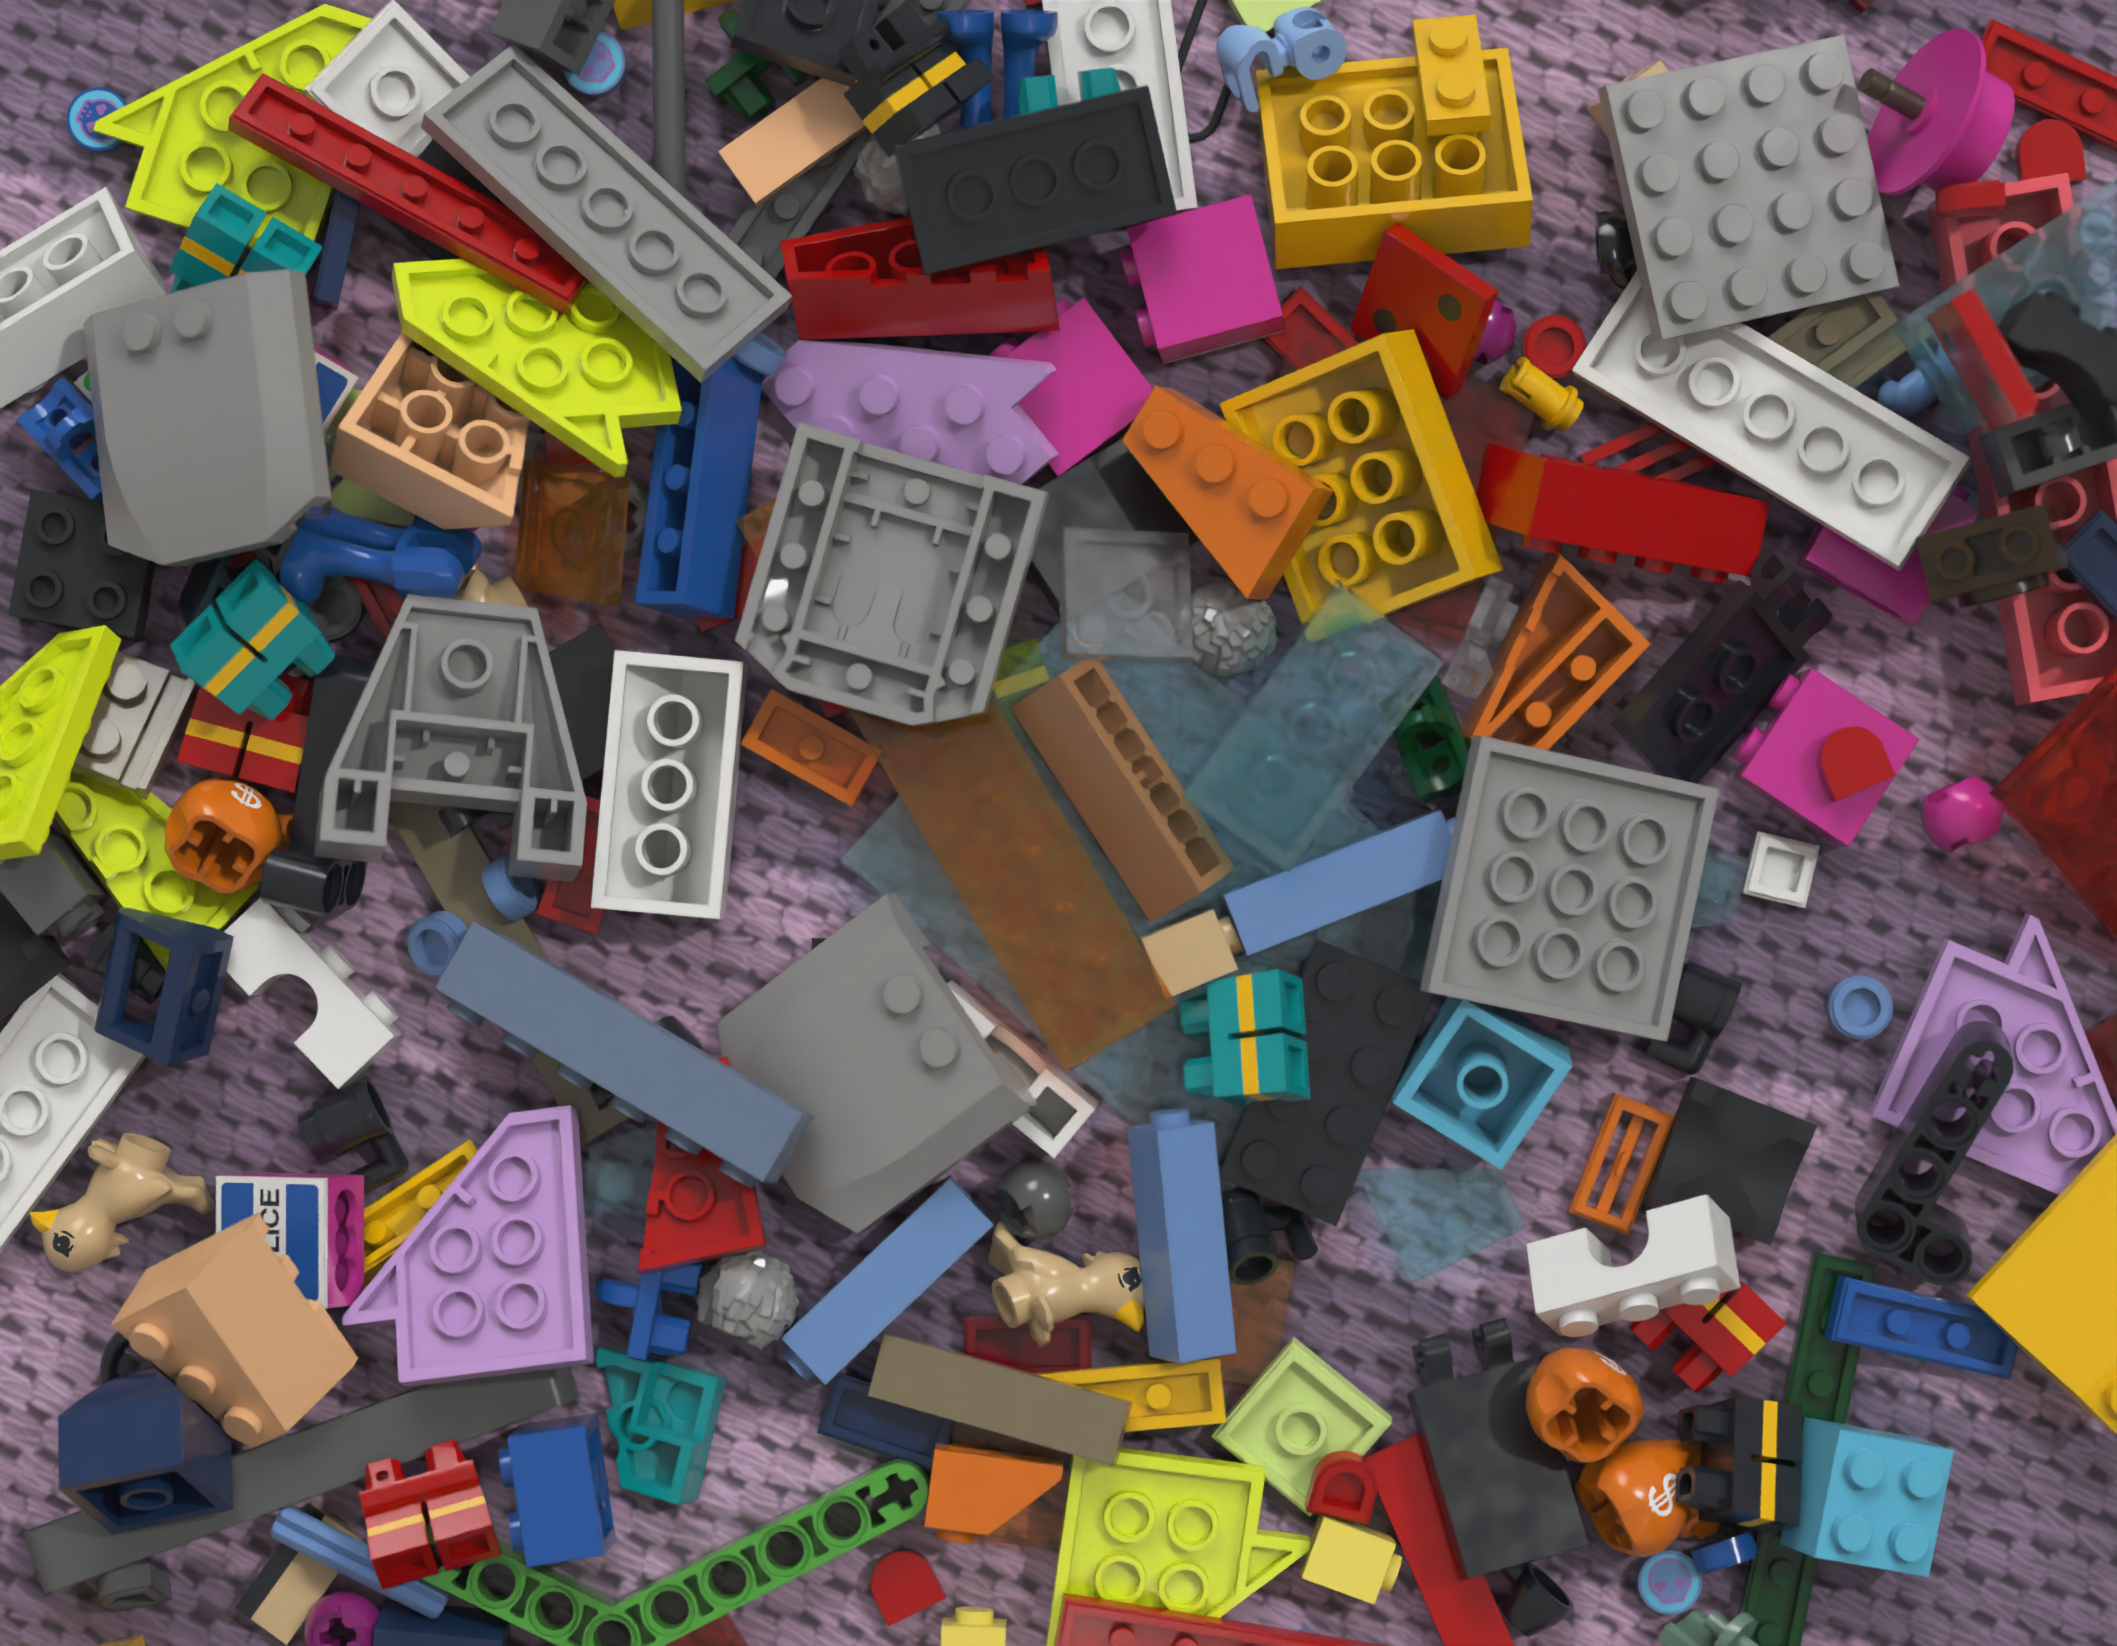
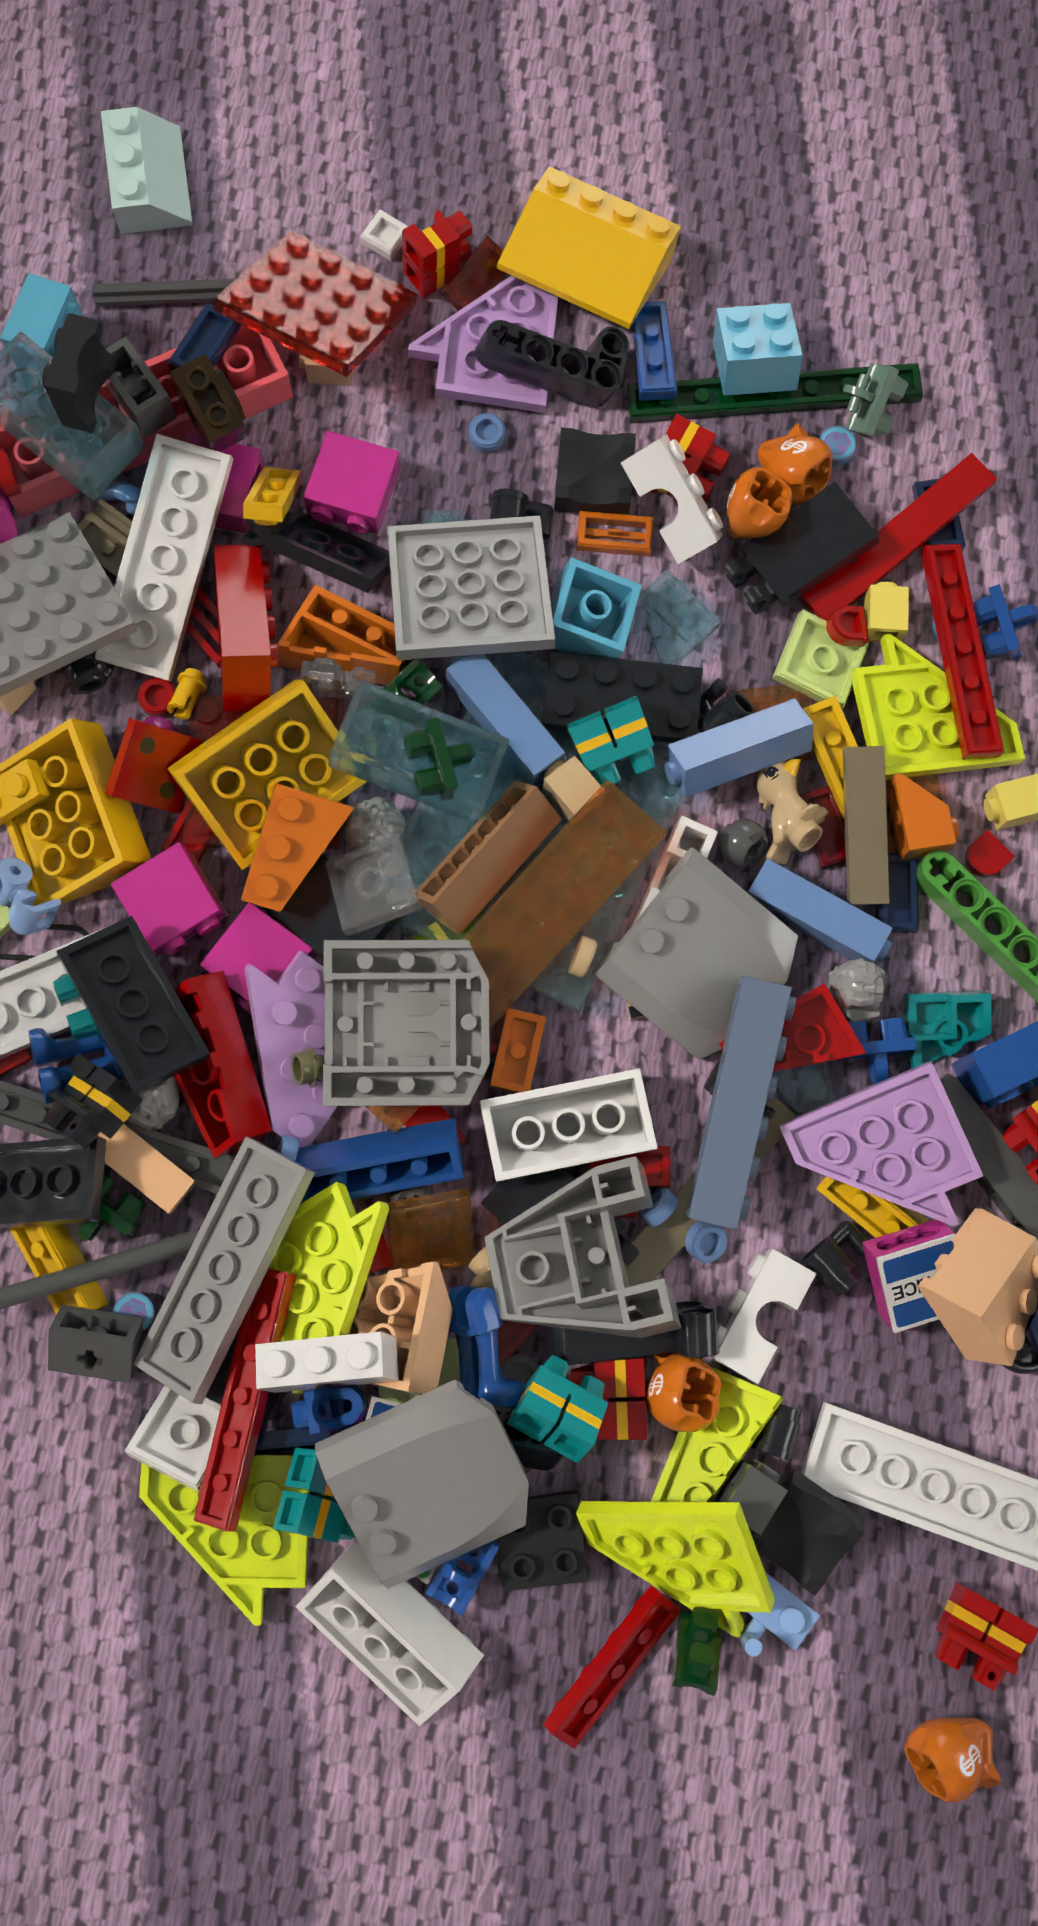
camera: 115 degrees left, 10 degrees down
(86, 110) = (251, 1635): tile -> none
(124, 1186) = (917, 1391): tan animal -> none
(134, 725) = (631, 1475): plate -> none
(188, 994) = (790, 1383): dark blue tile -> none
(359, 312) = (330, 1408): none -> blue hips
(414, 321) = (326, 1360): none -> white arch
(871, 416) = (307, 1067): none -> olive plate
(917, 885) = (582, 957): none -> tan tile
(1304, 741) = (431, 743): none -> dark green hips
(1534, 1600) = (876, 508): black bar -> none
(1725, 1553) = (812, 417): blue tile -> none
(1743, 1463) = (754, 424): black hips -> none
(1780, 869) = (422, 493): white tile -> none
(1829, 619) = (271, 495): none -> yellow plate
(1852, 761) = (350, 458): red tile -> none
(1961, 814) = (362, 404): dark pink piece -> none
(1983, 359) = (94, 416): red tile -> none

